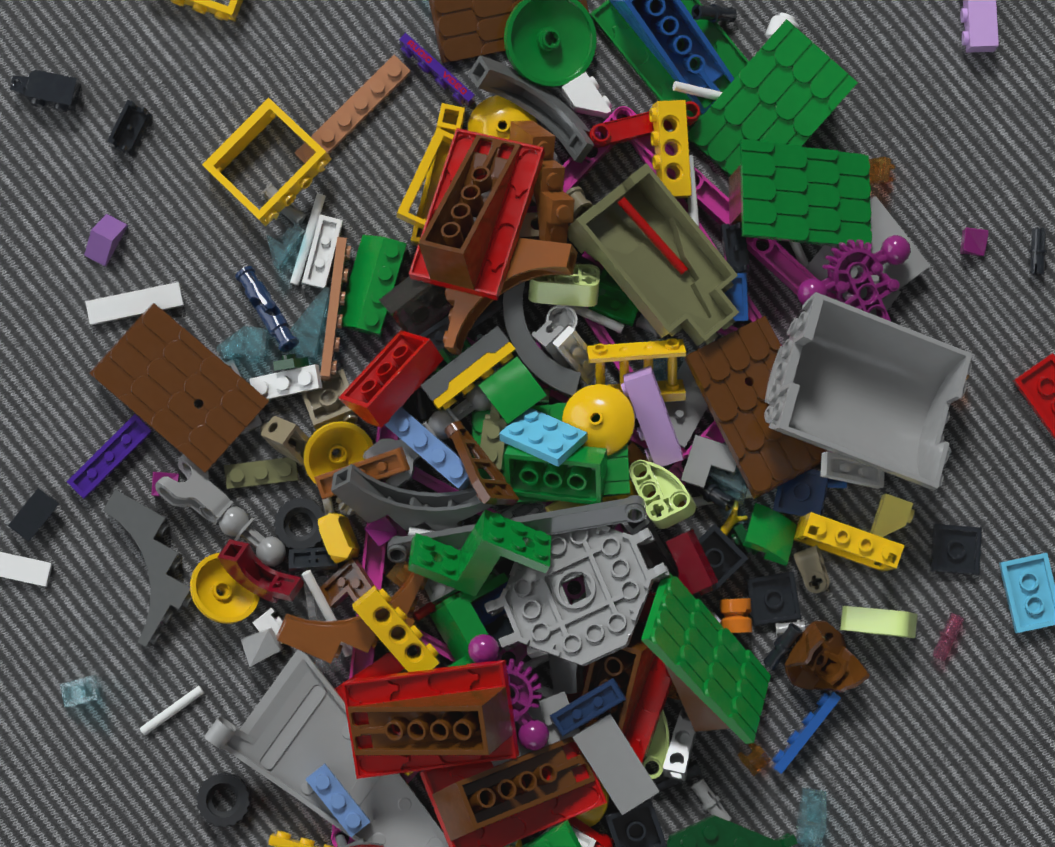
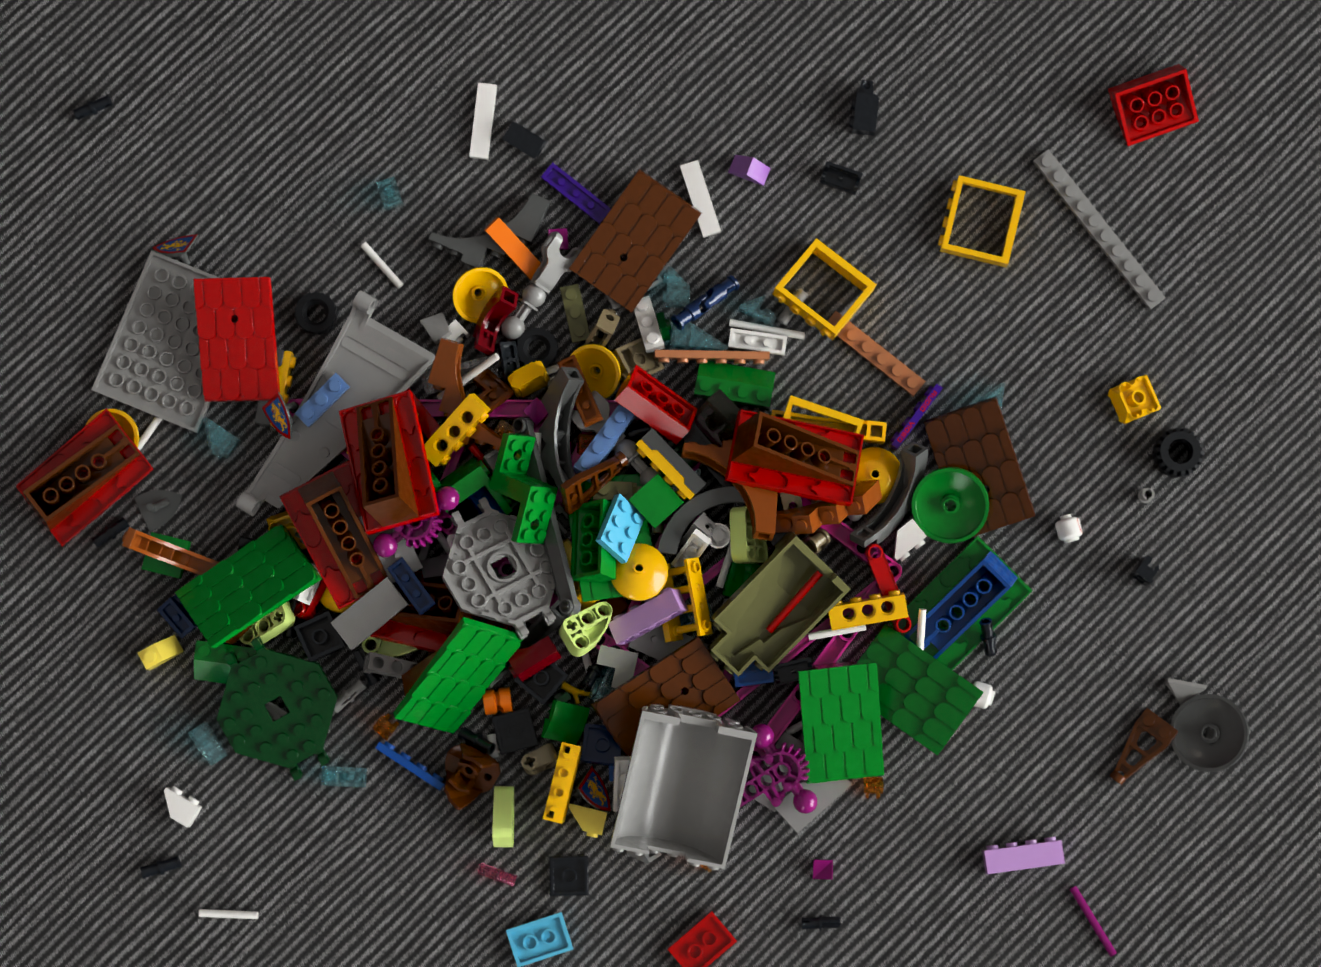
camera: 90 degrees right, 0 degrees up
(169, 540) = (513, 247): none -> orange tile
(426, 473) = (583, 442): none -> clear orange tile
(857, 507) = (593, 791): none -> shield

